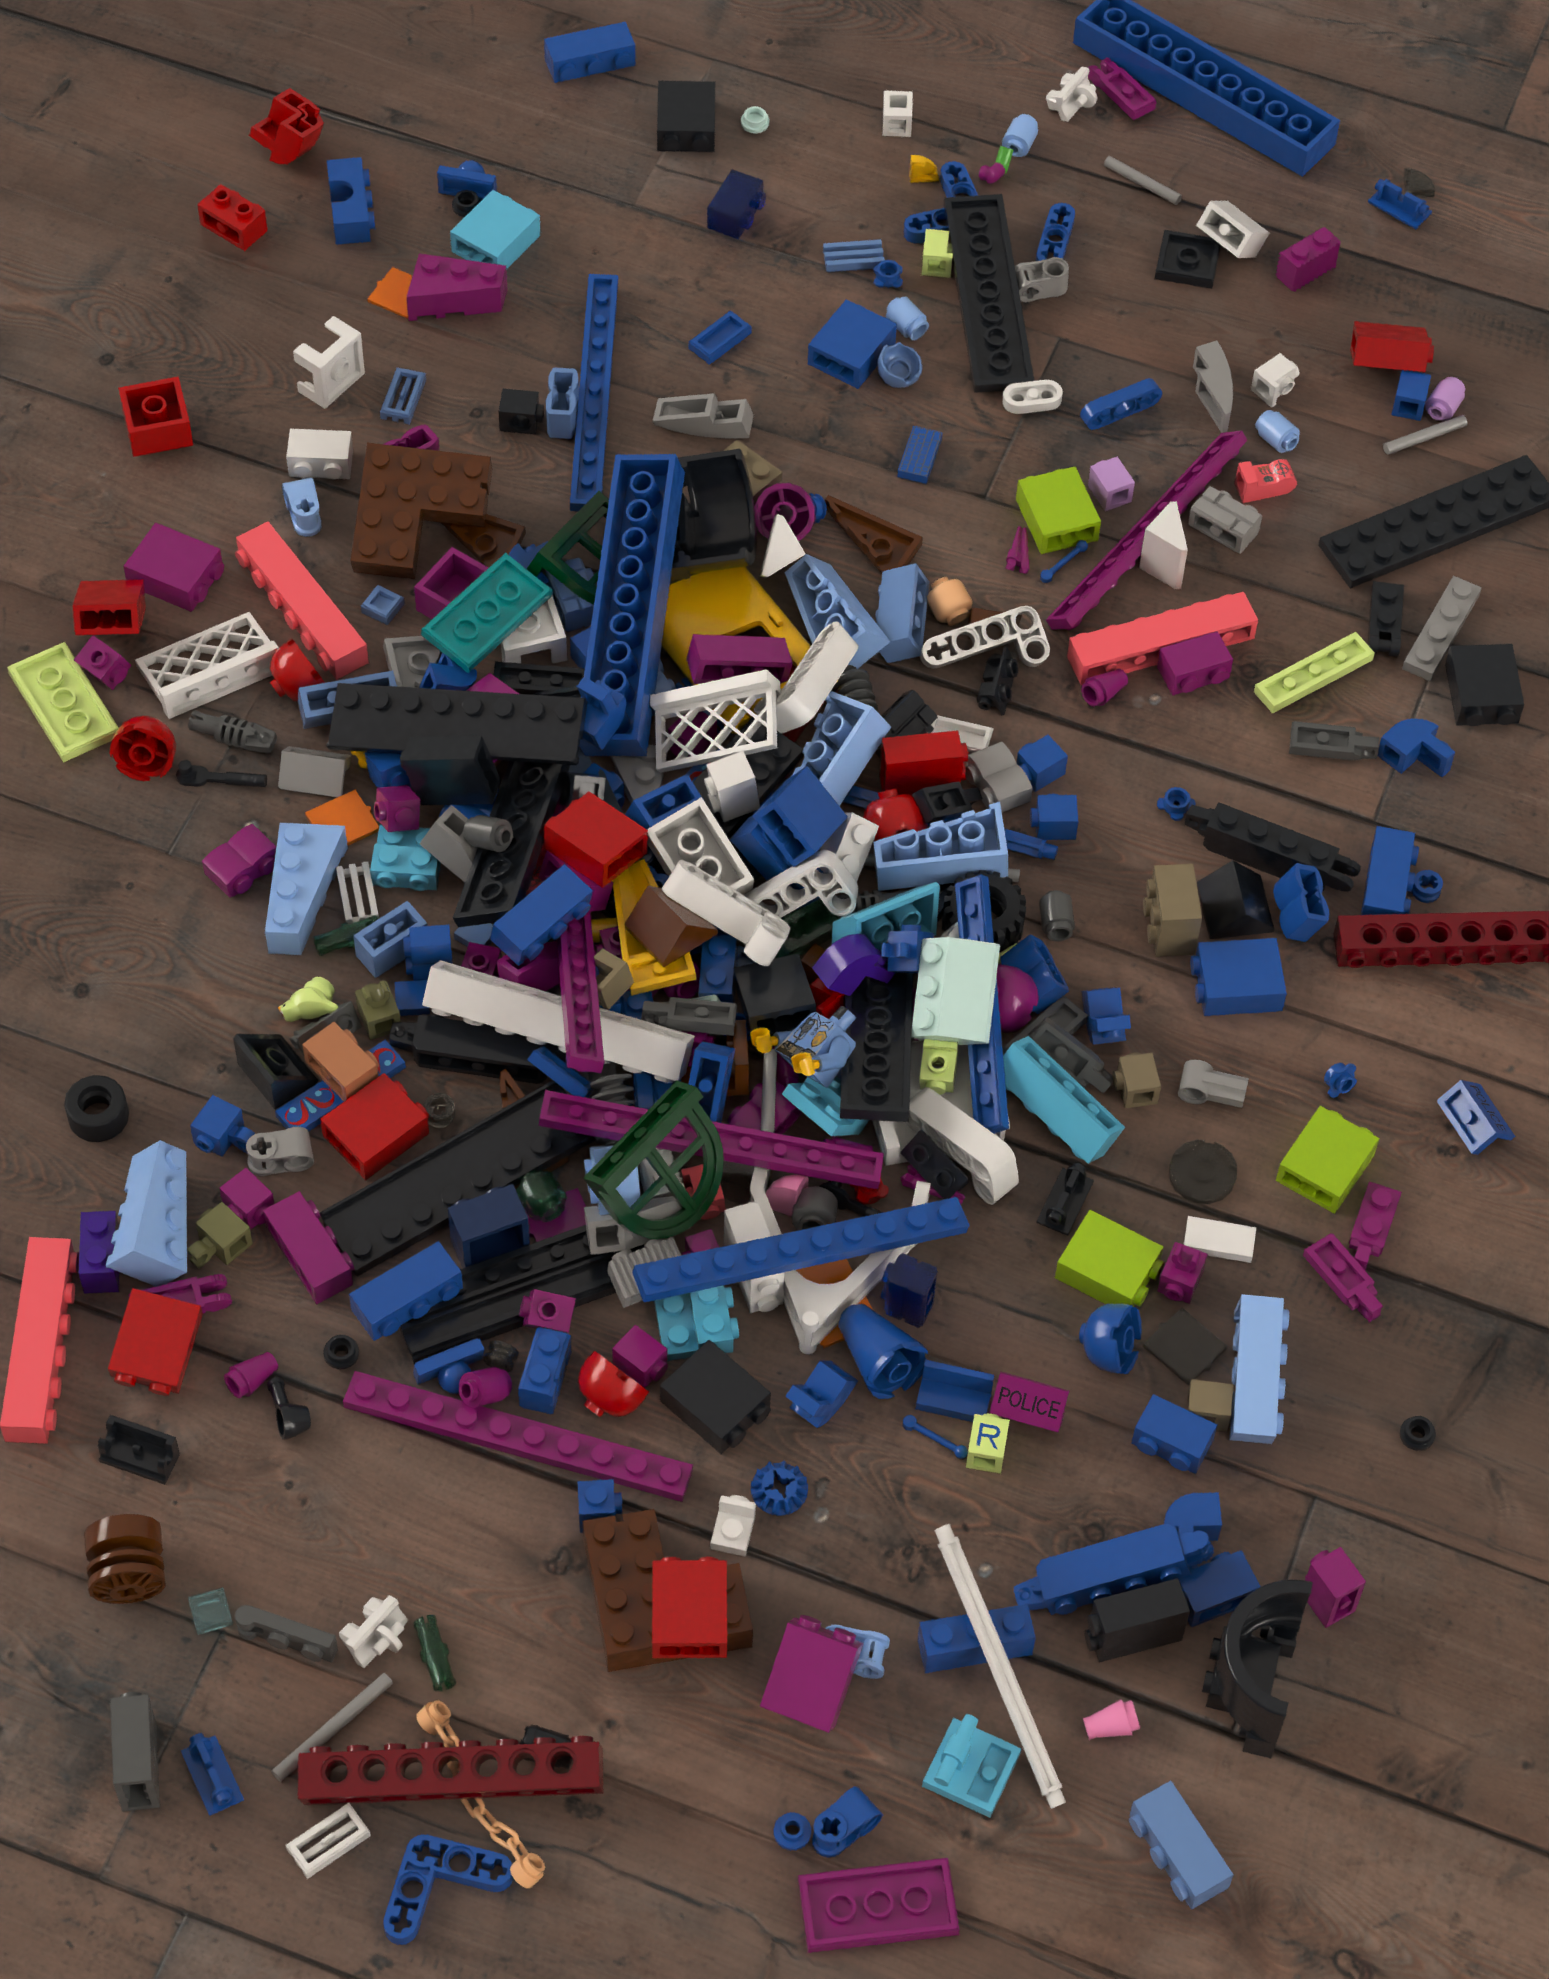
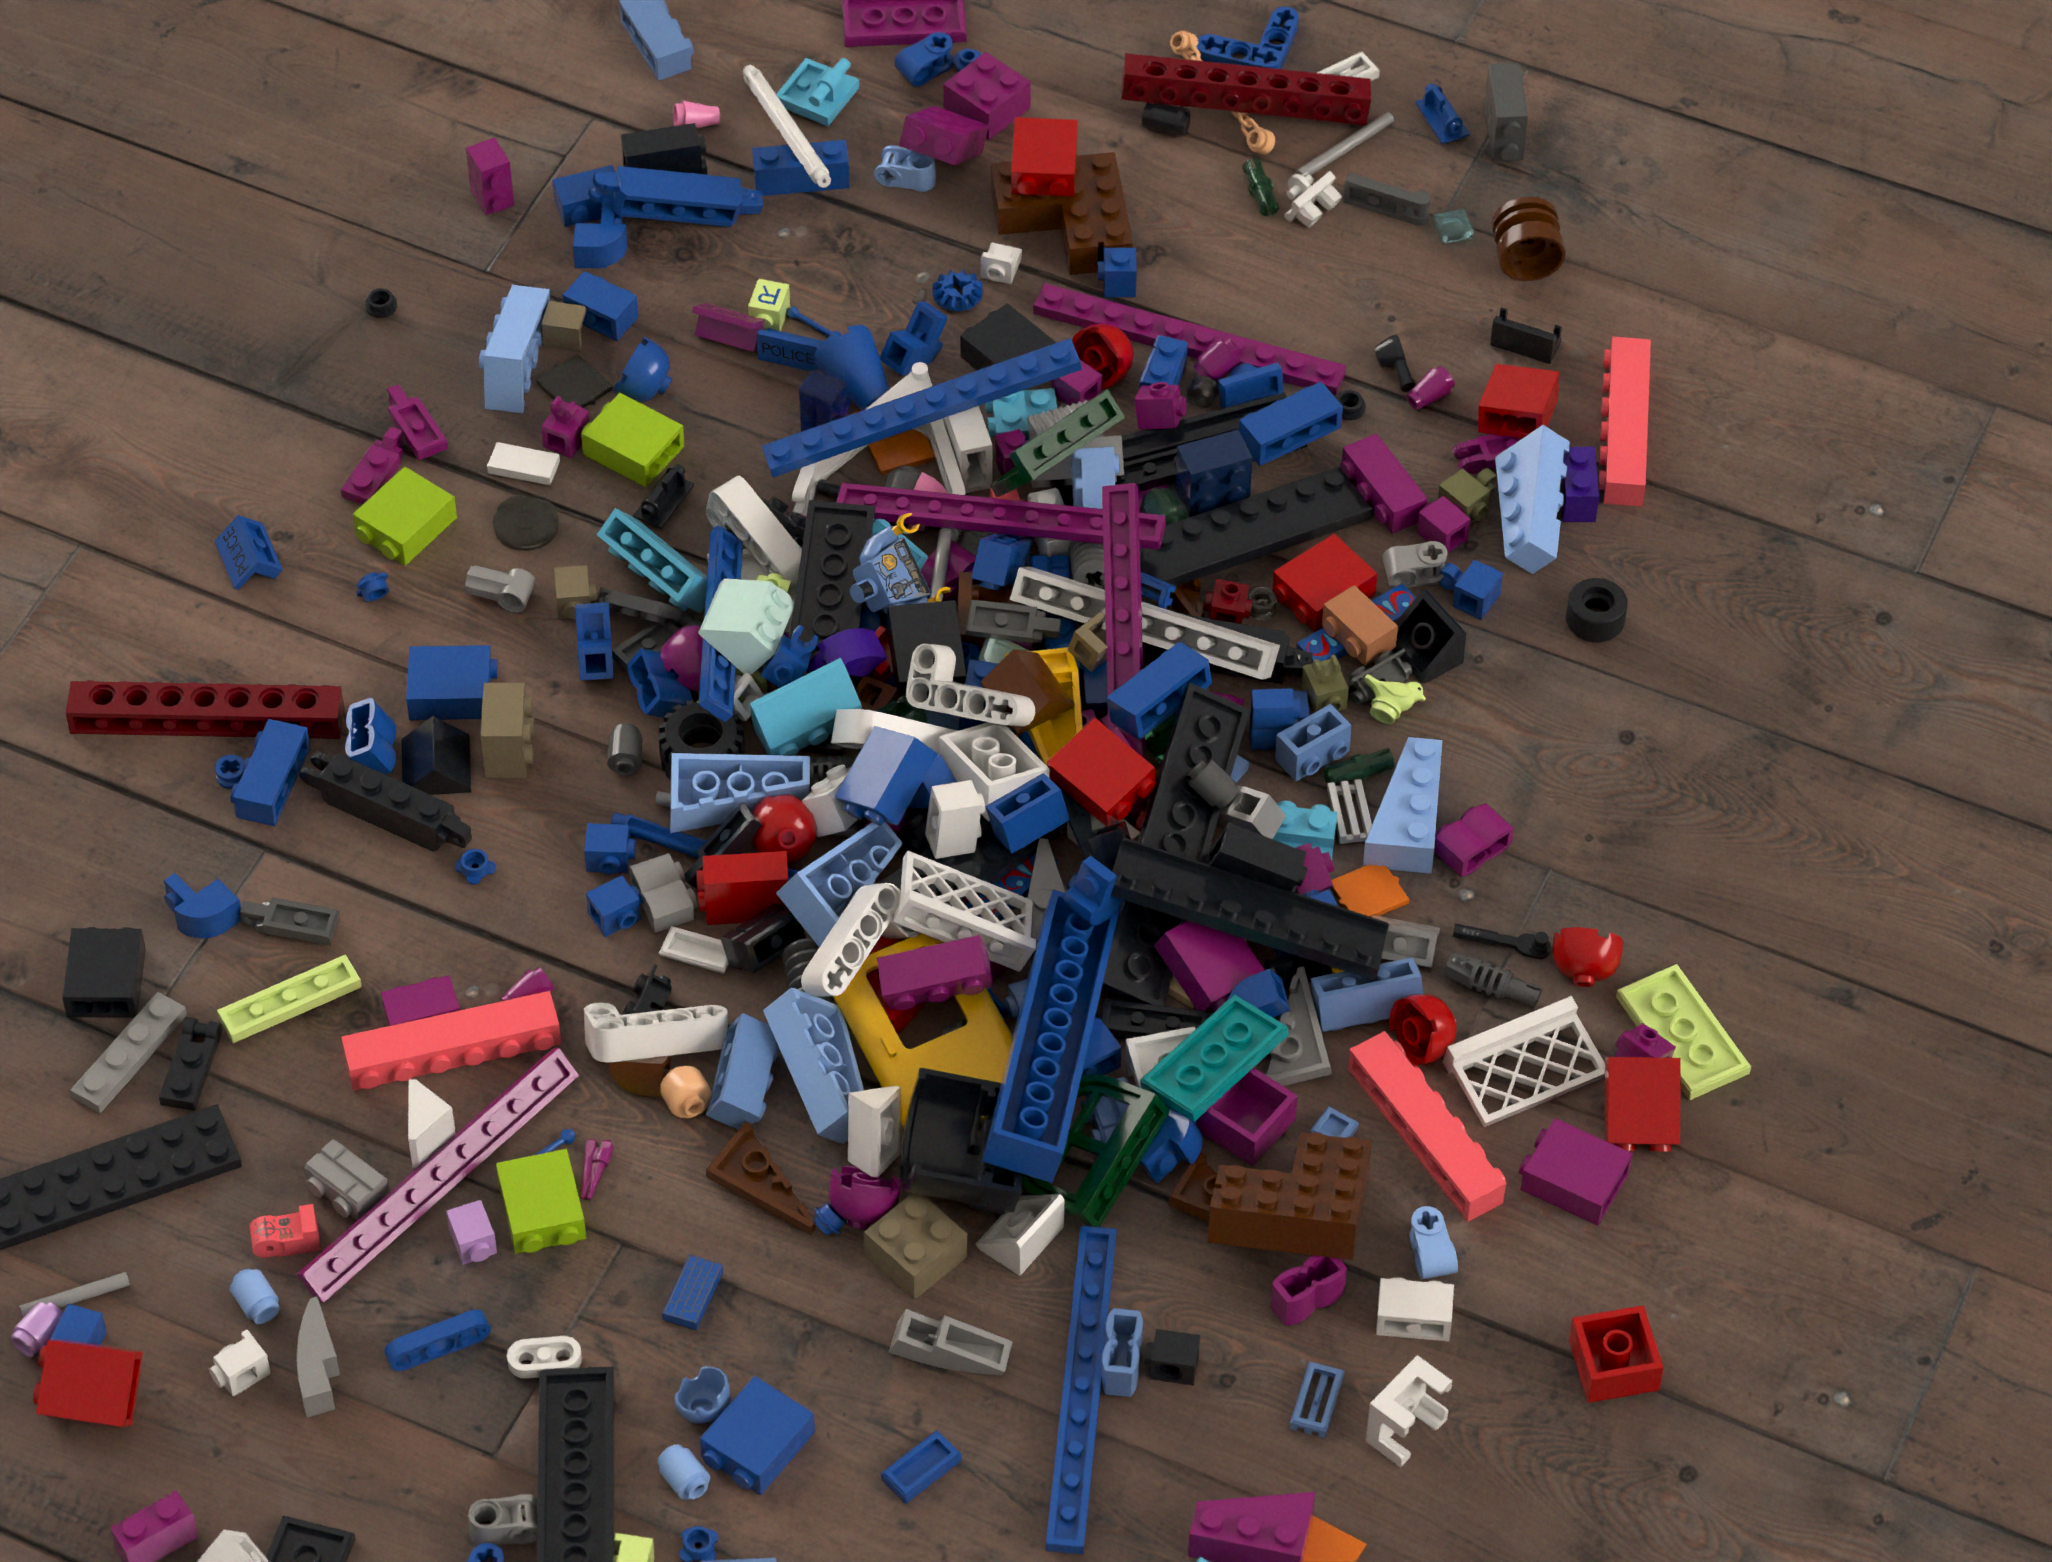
camera: 175 degrees left, 5 degrees down
(474, 1085) = (1228, 602): none -> dark red brick
(765, 1763) = (988, 93): none -> magenta piece
(1248, 1663) = (574, 132): black piece -> none

